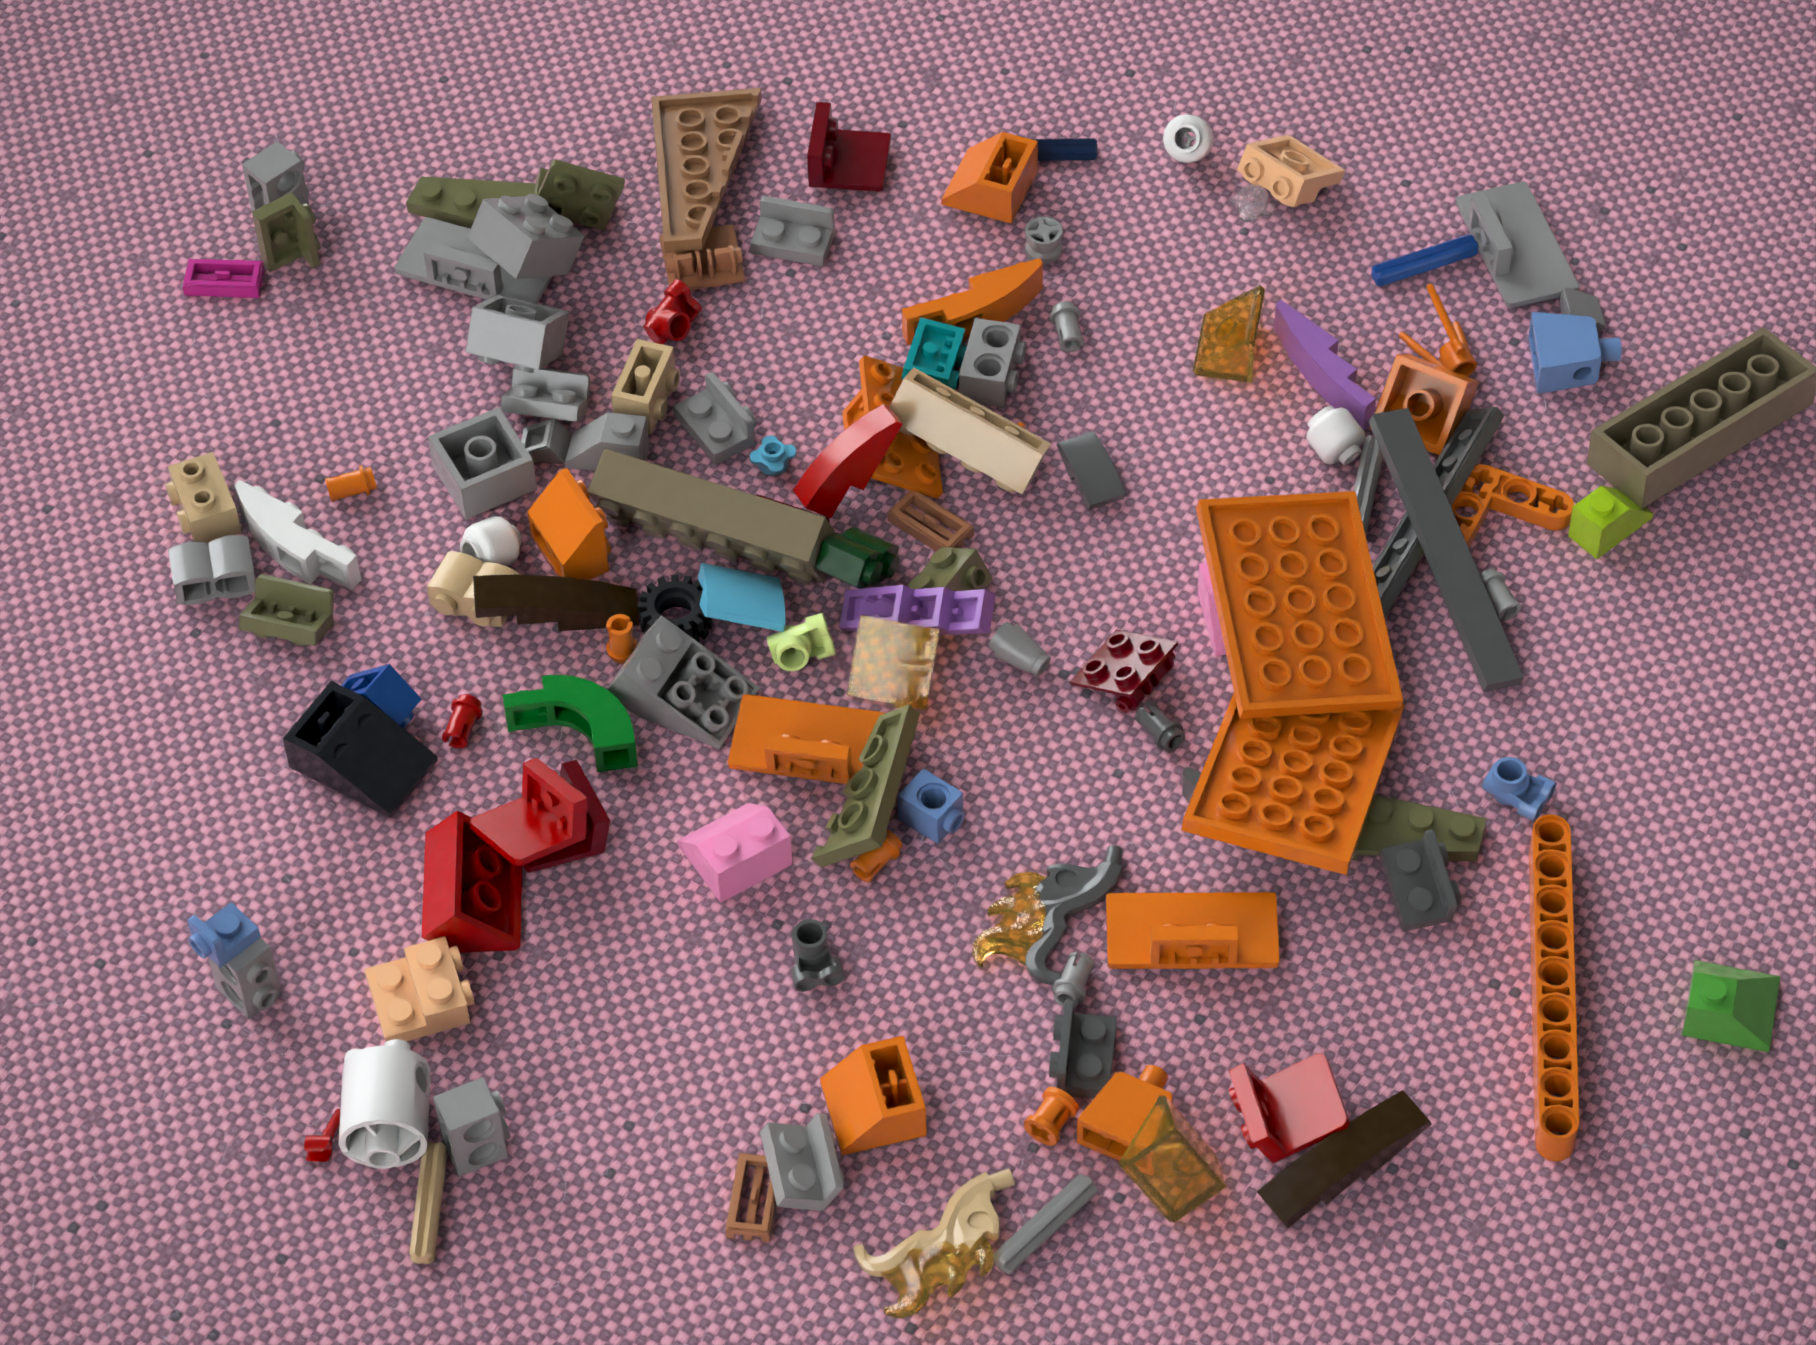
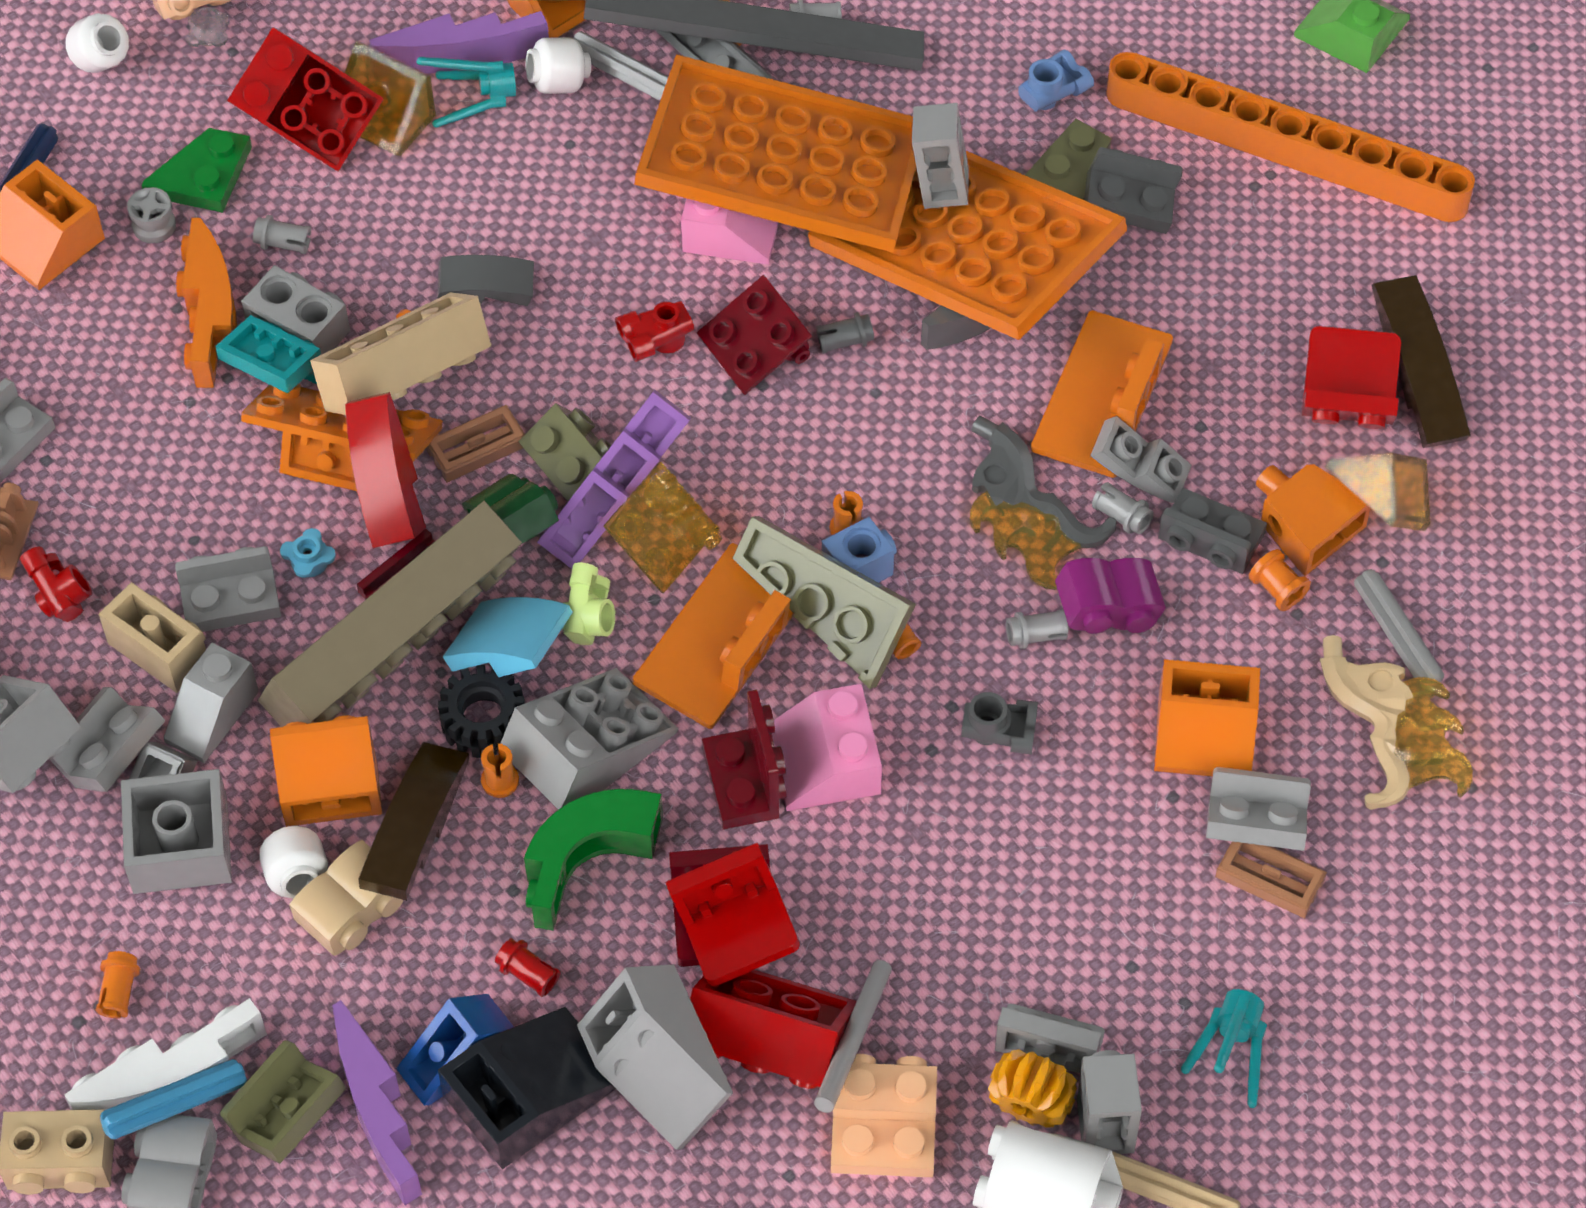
camera: 70 degrees left, 5 degrees up
(256, 541) = (173, 1099): none -> dark azure axle
(317, 659) = (372, 1090): none -> medium lavender slope
(418, 796) = (656, 1051): none -> light grey slope
(470, 1060) = (1032, 1088): none -> light orange gear
(472, 939) = (852, 1036): none -> light grey bar
(529, 1077) = (1047, 1035): none -> light grey bracket
(599, 1206) = (1237, 1022): none -> teal plant
(695, 797) = (747, 769): none -> dark red bracket
(915, 946) = (1036, 628): none -> light grey pin
(965, 780) = (846, 513): none -> orange pin
(970, 991) = (1110, 594): none -> magenta brick
(1019, 649) = (704, 413): light grey cone -> none
(1093, 593) = (655, 329): none -> red plate
(1109, 256) = (203, 170): none -> green wing
(1128, 976) = (1145, 465): none -> light grey slope
(1199, 278) = (305, 99): none -> red slope
(1297, 399) = (494, 78): none -> teal plant
(1343, 707) = (940, 155): none -> light grey brick

